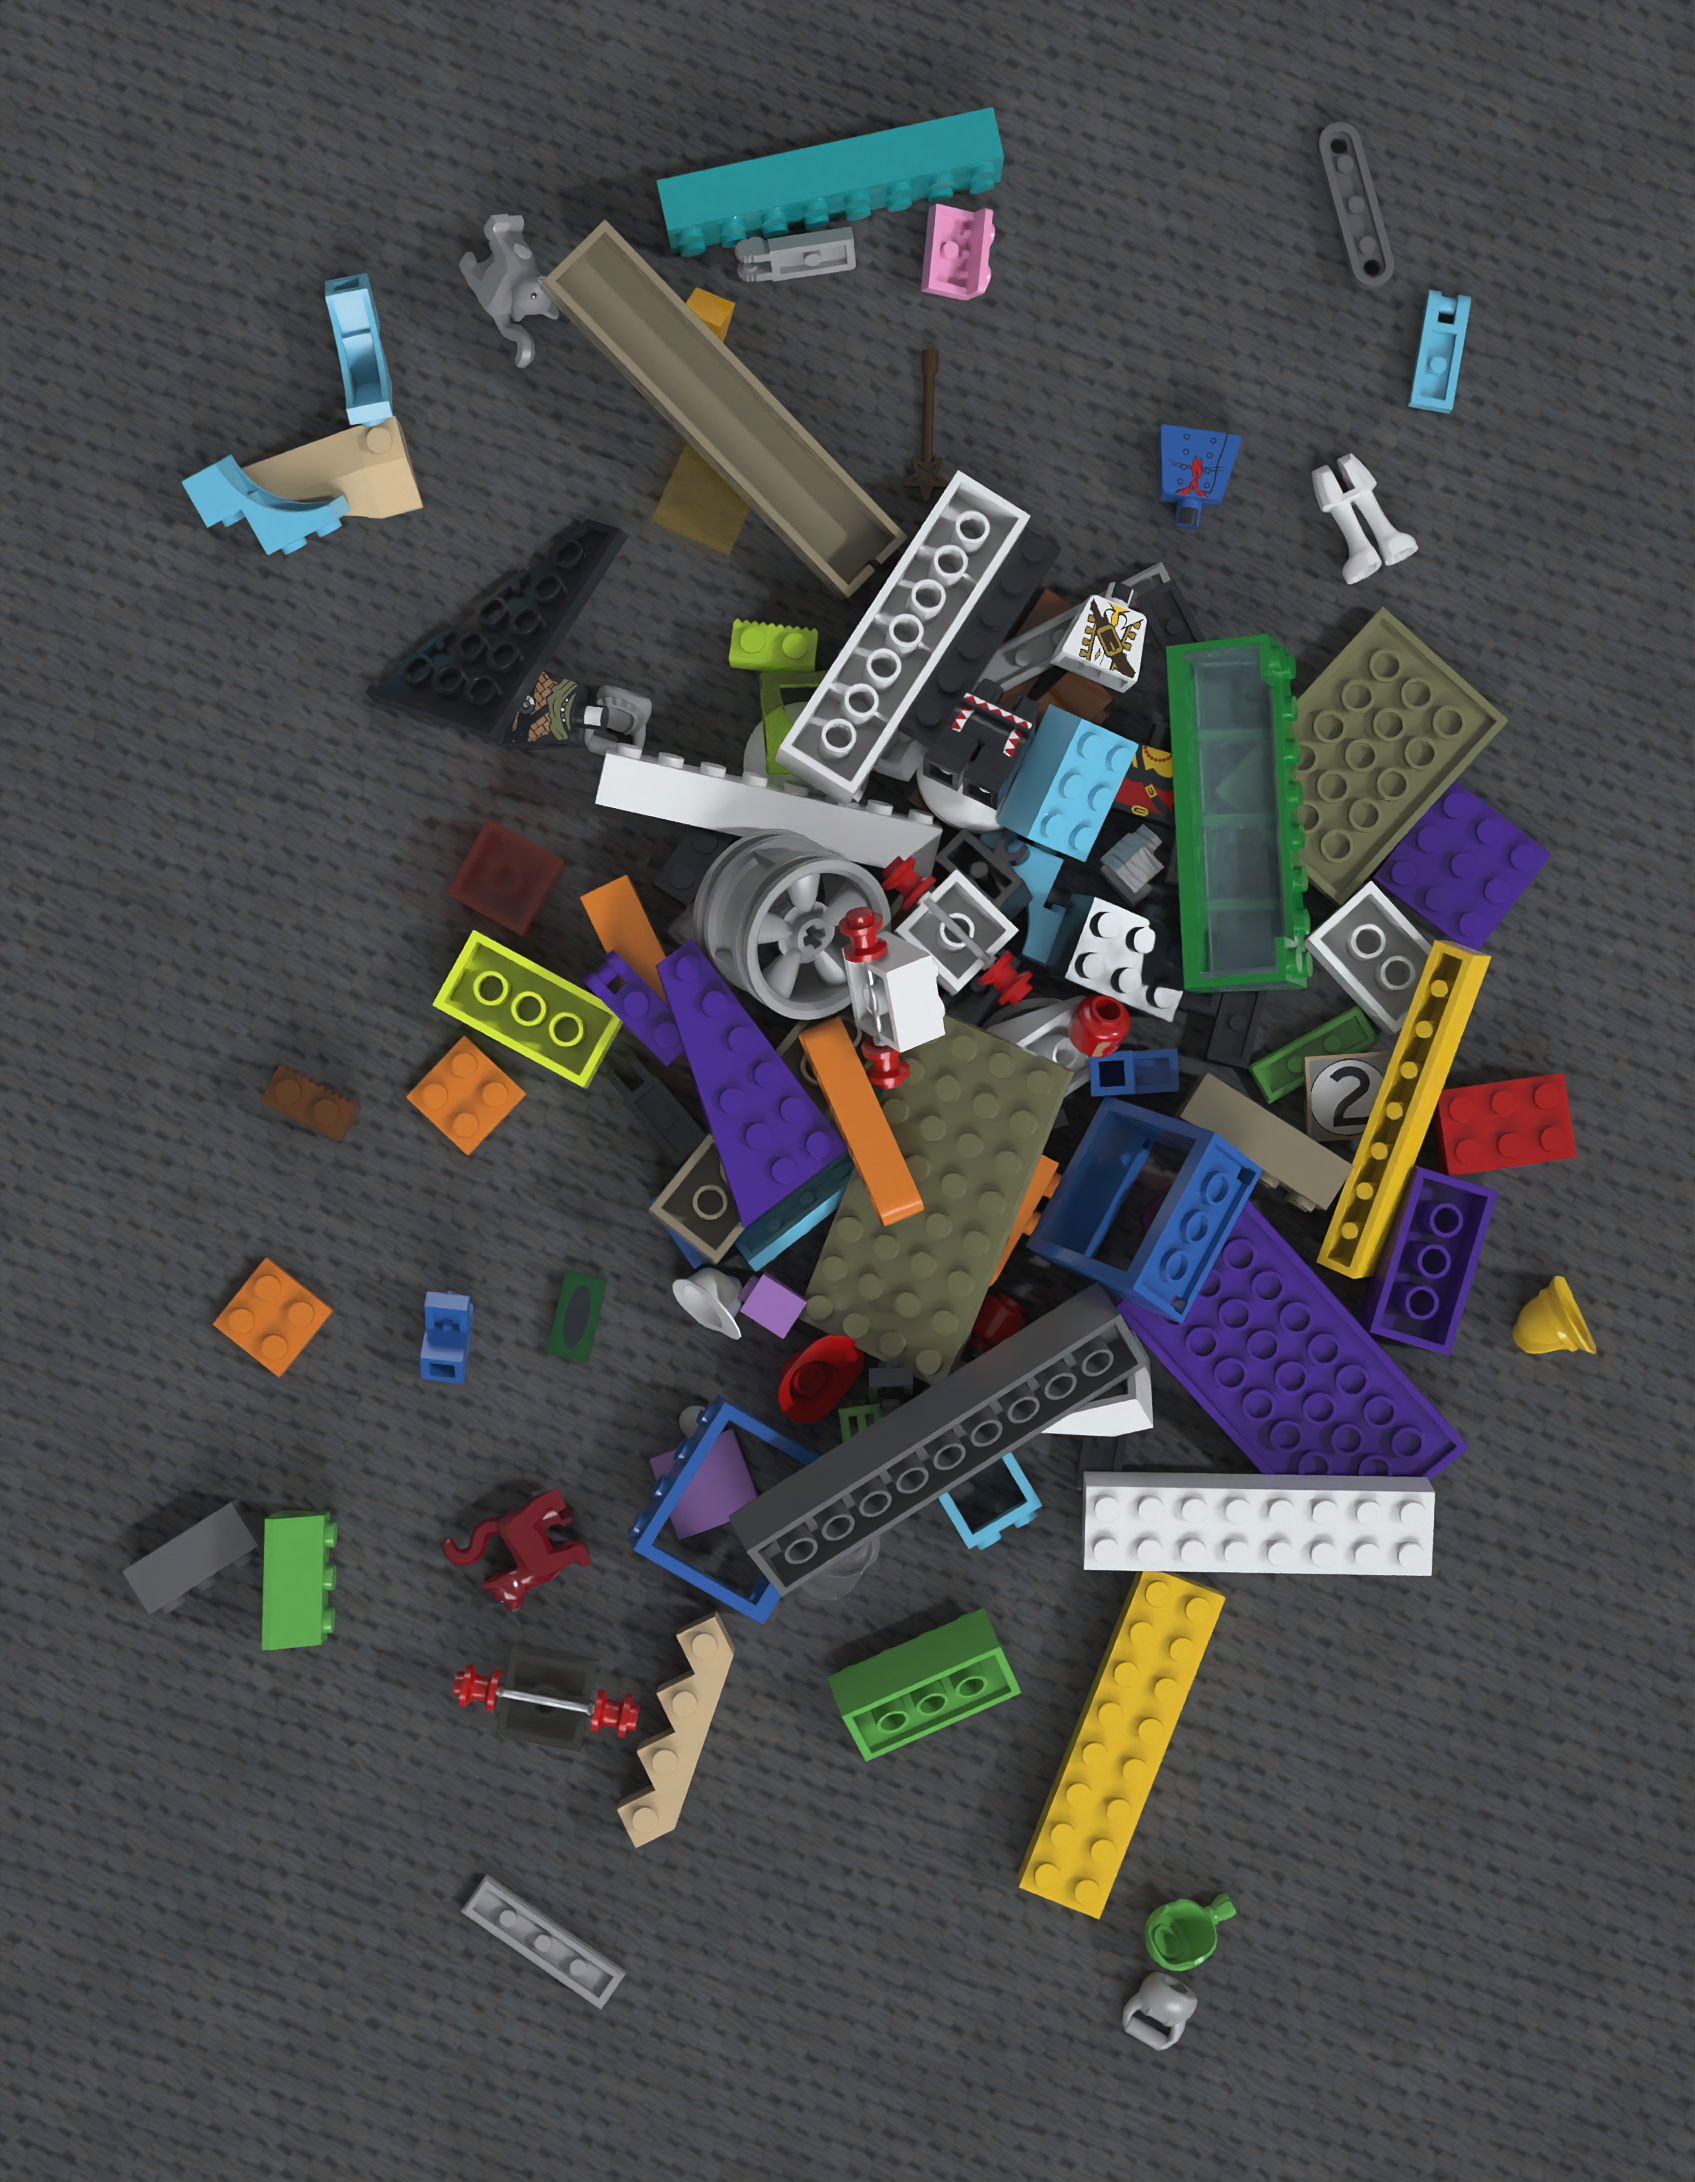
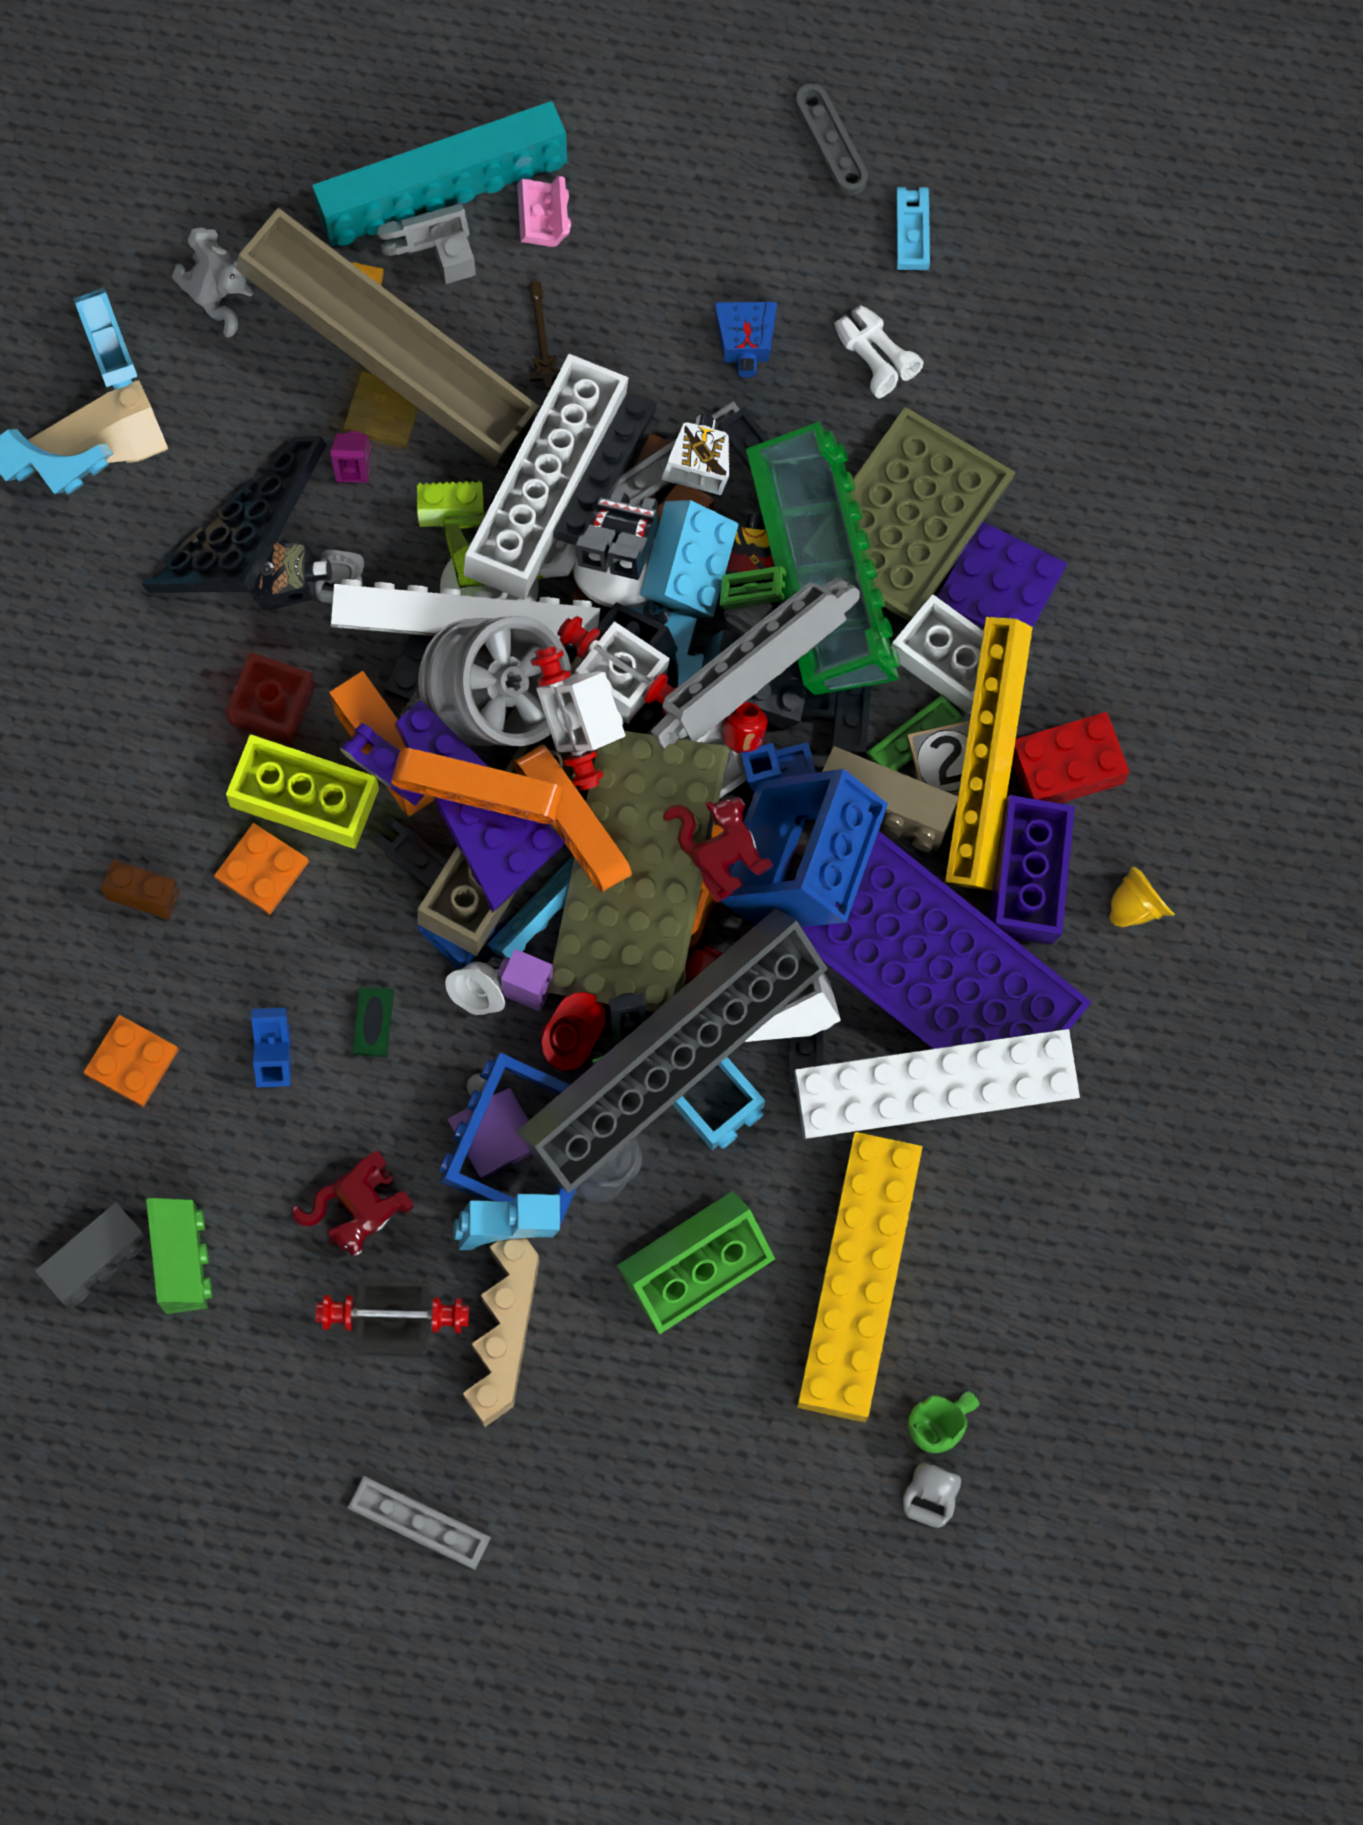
camera: 10 degrees left, 15 degrees down
(656, 561) = (351, 457): none -> magenta slope
(702, 1613) = (496, 1221): none -> medium azure arch
(746, 1071) = (477, 785): none -> orange beam
(831, 301) = (455, 257): none -> light grey brick
(1042, 1208) = (722, 851): none -> dark red animal
(1128, 956) = (754, 660): none -> light grey hinge
(1173, 846) = (752, 593): none -> bright green tile

